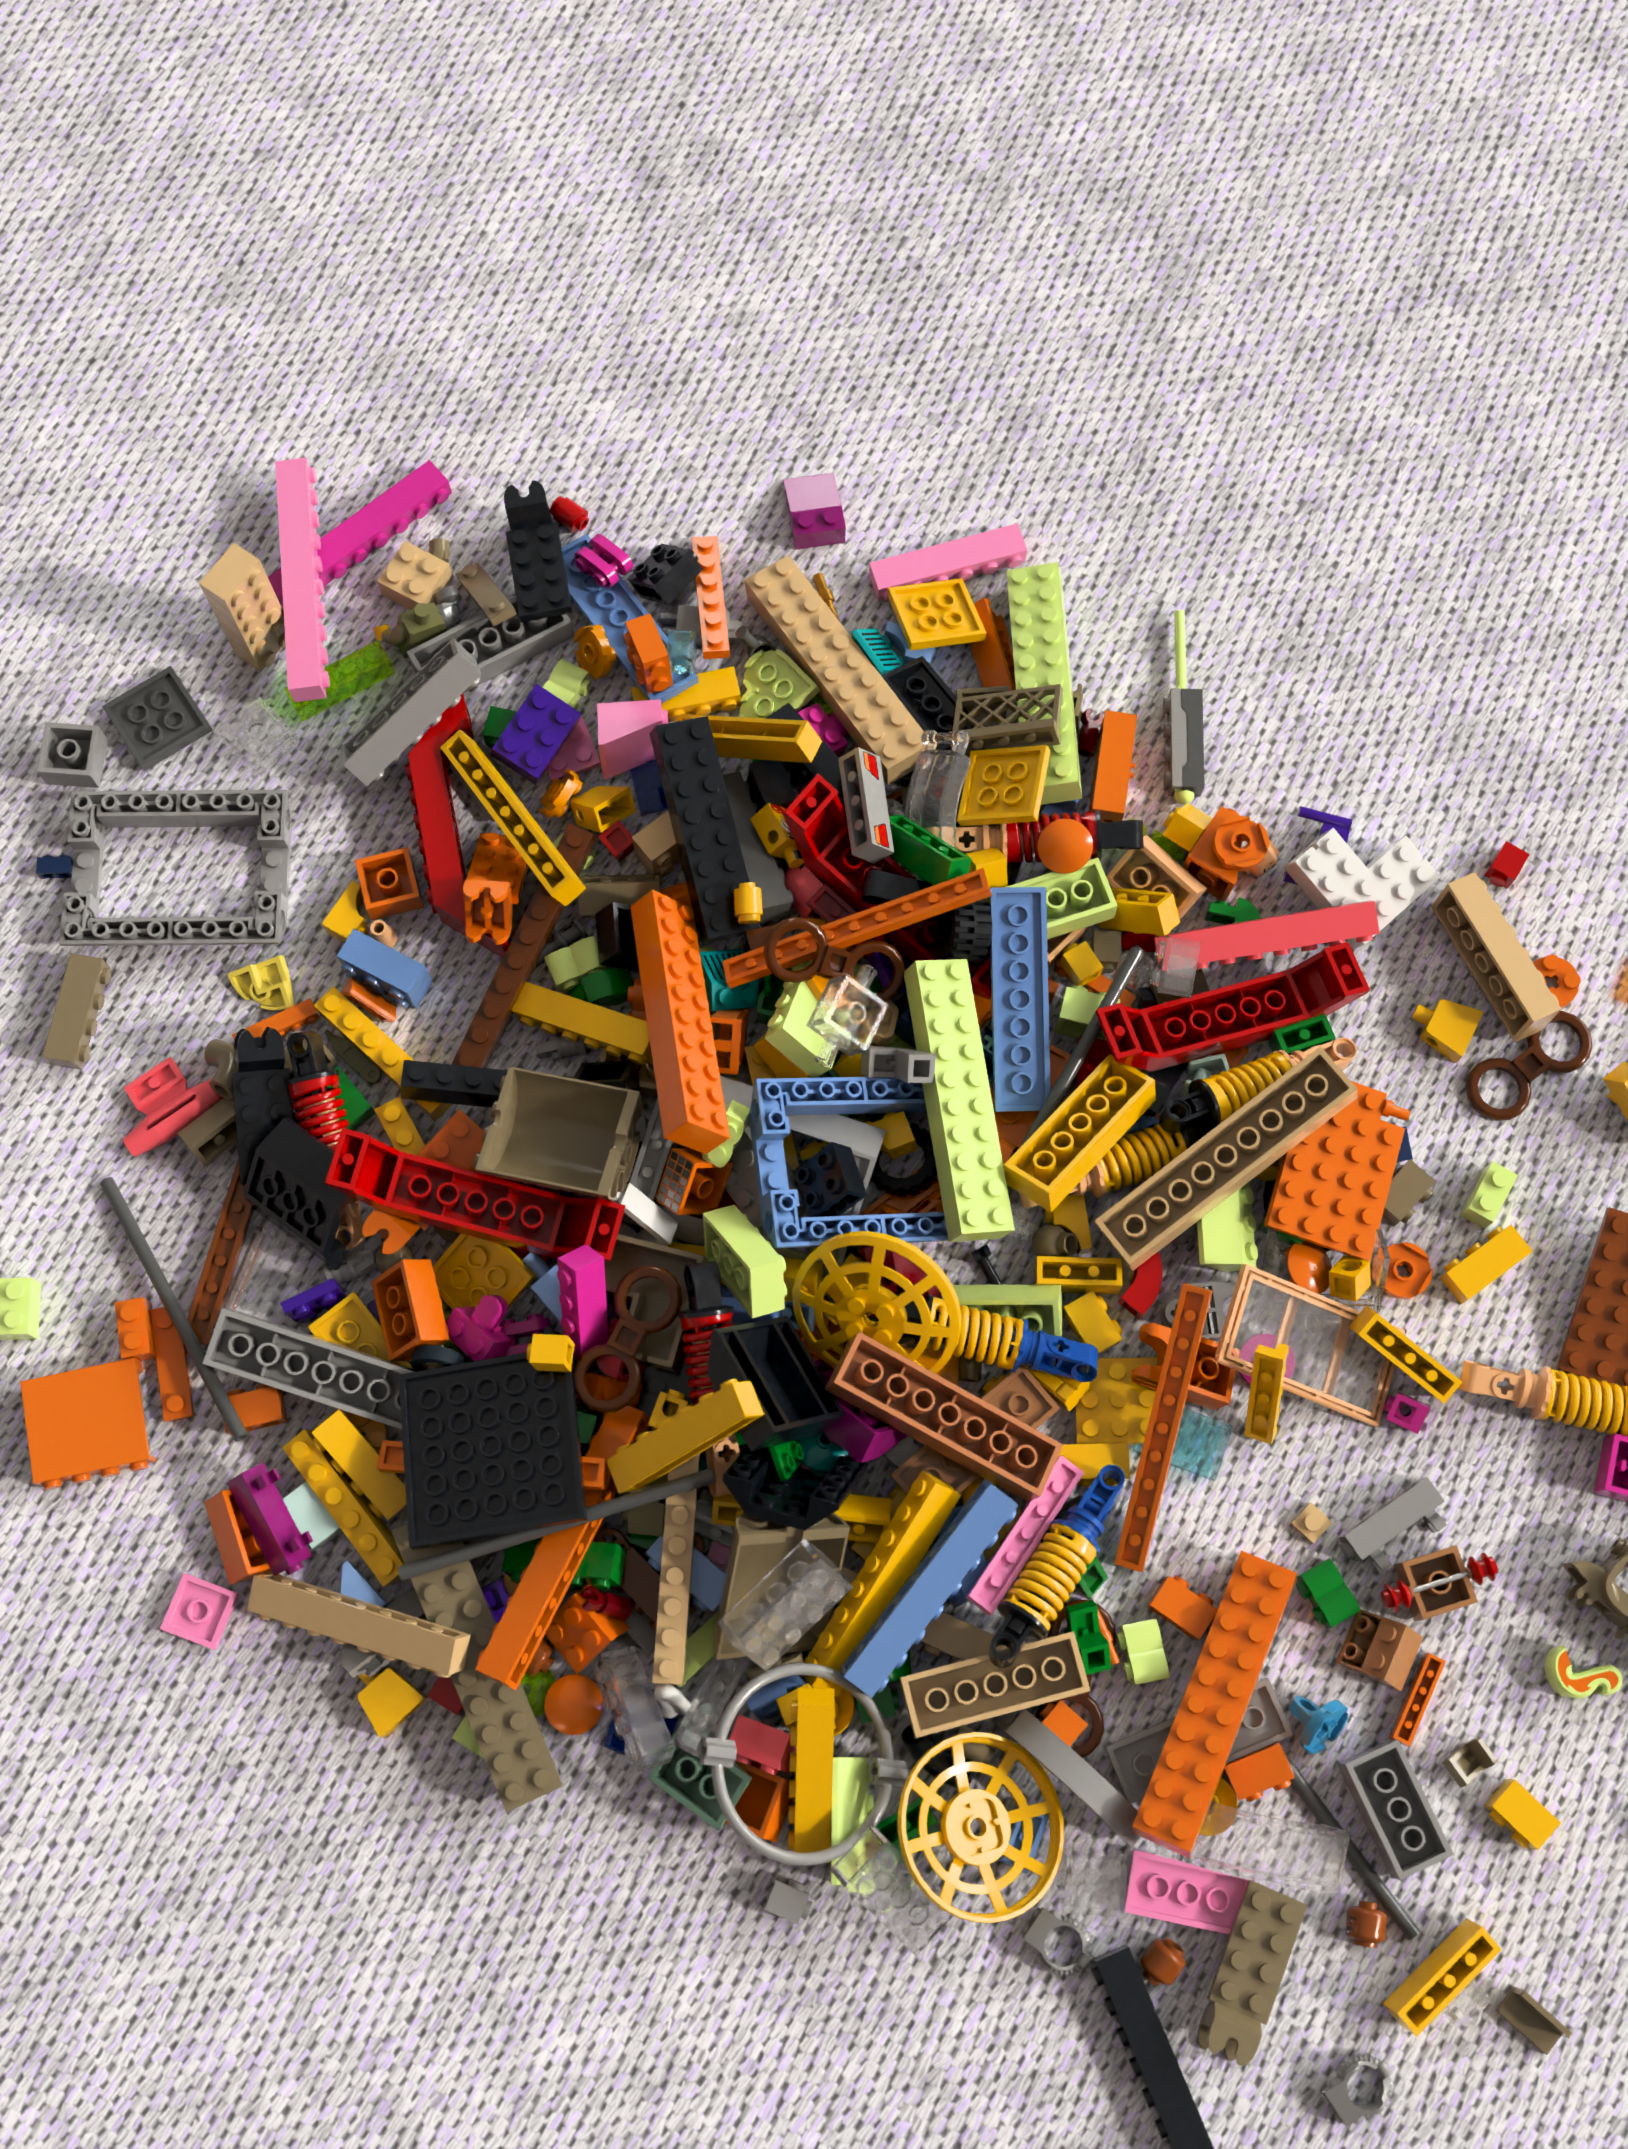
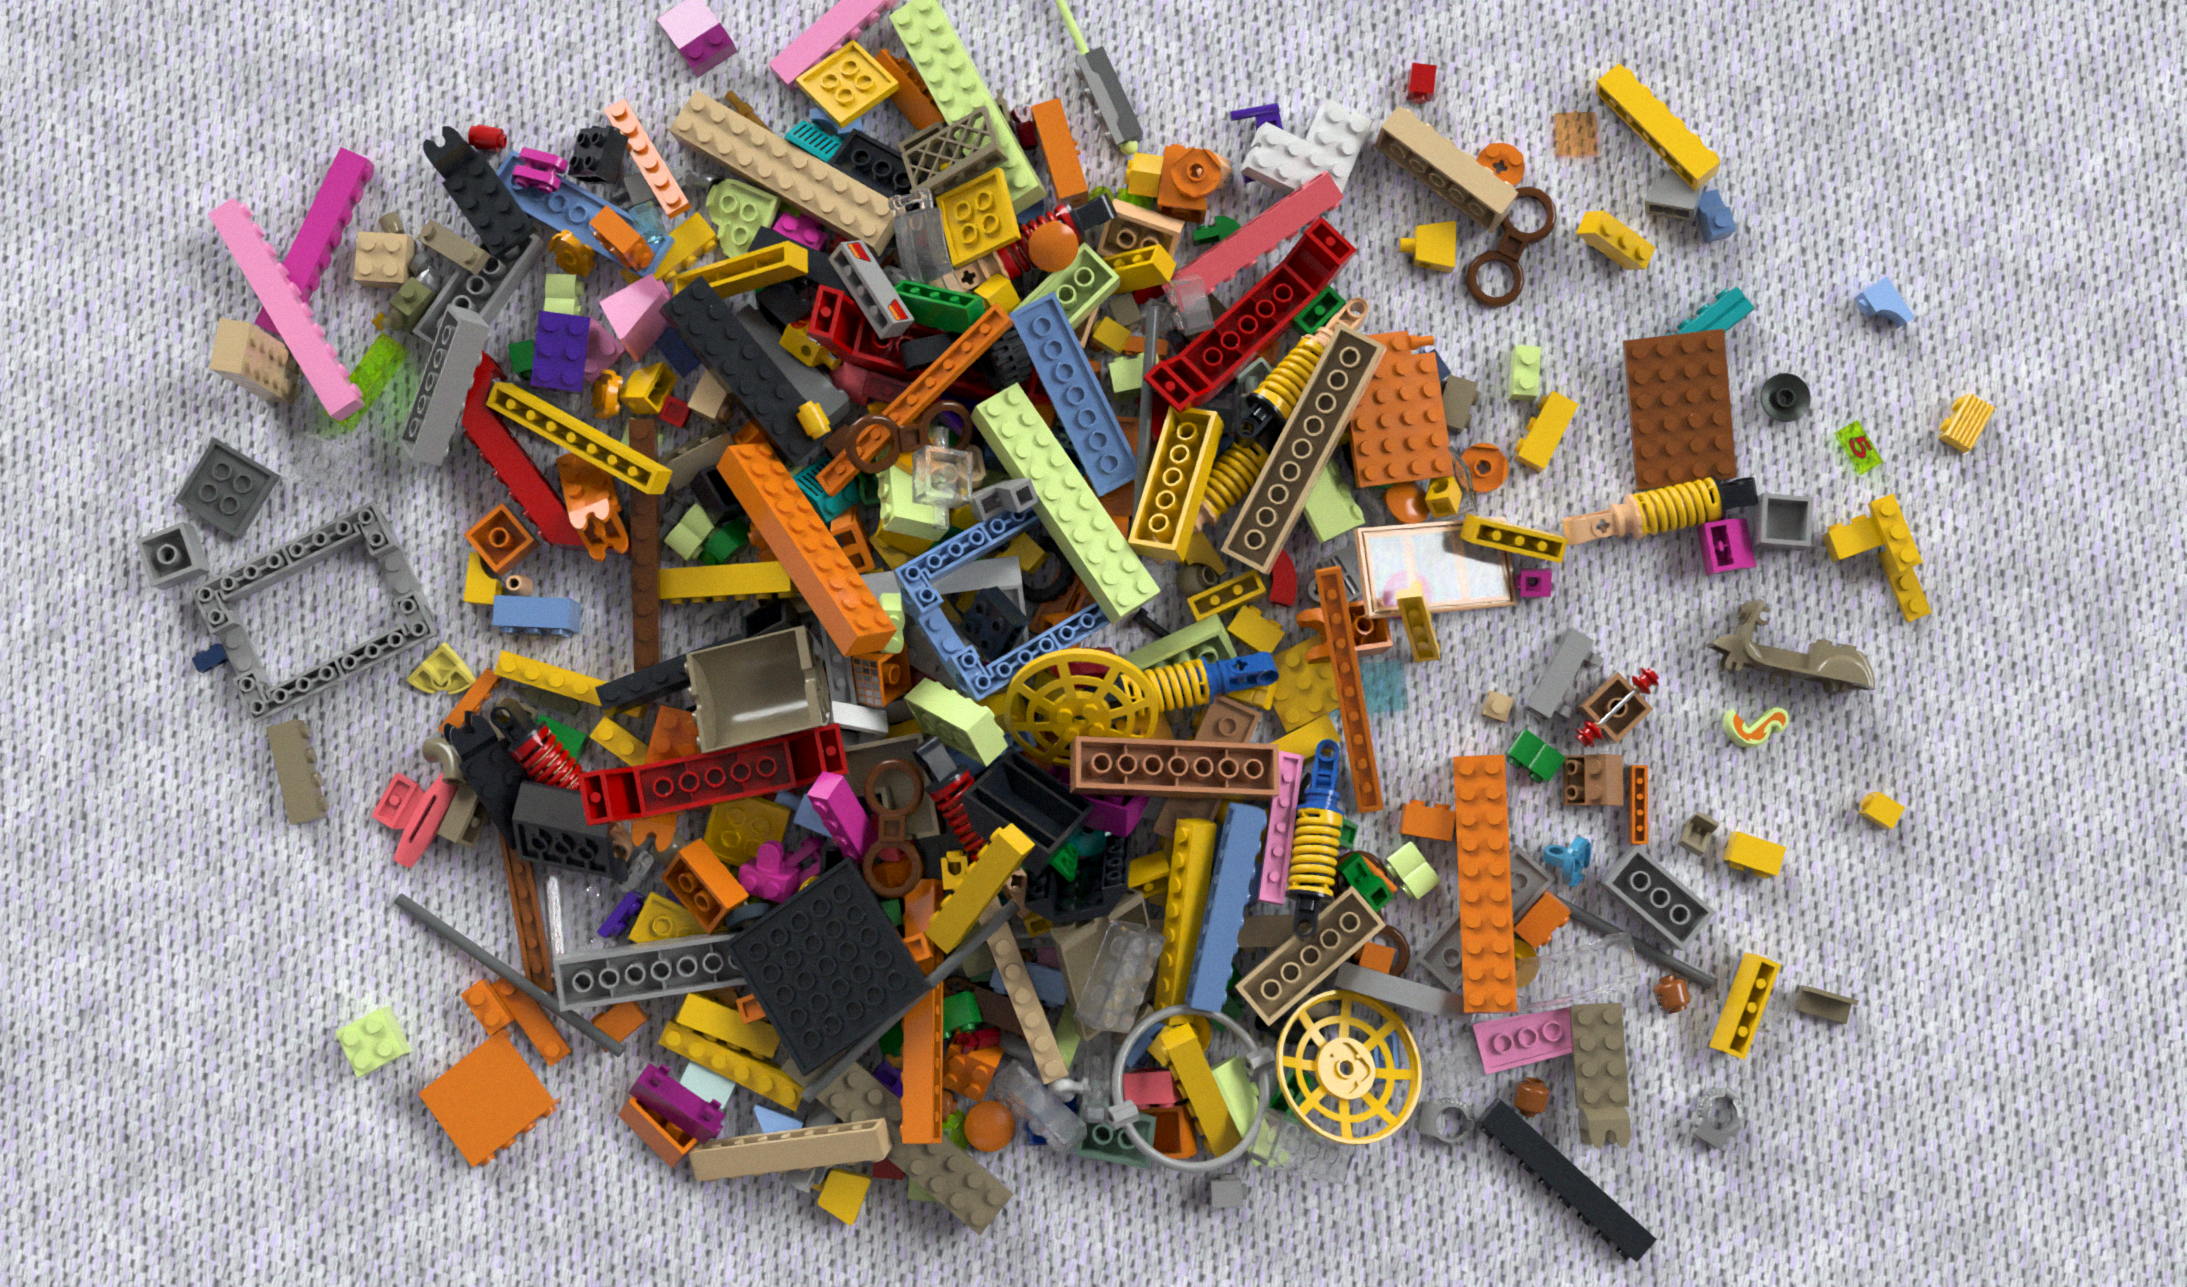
camera: 25 degrees left, 10 degrees up
(199, 1611) = (658, 1199): bright pink plate -> none
(369, 1000) = (537, 645): orange slope -> none
(551, 1352) = (838, 870): yellow brick -> none

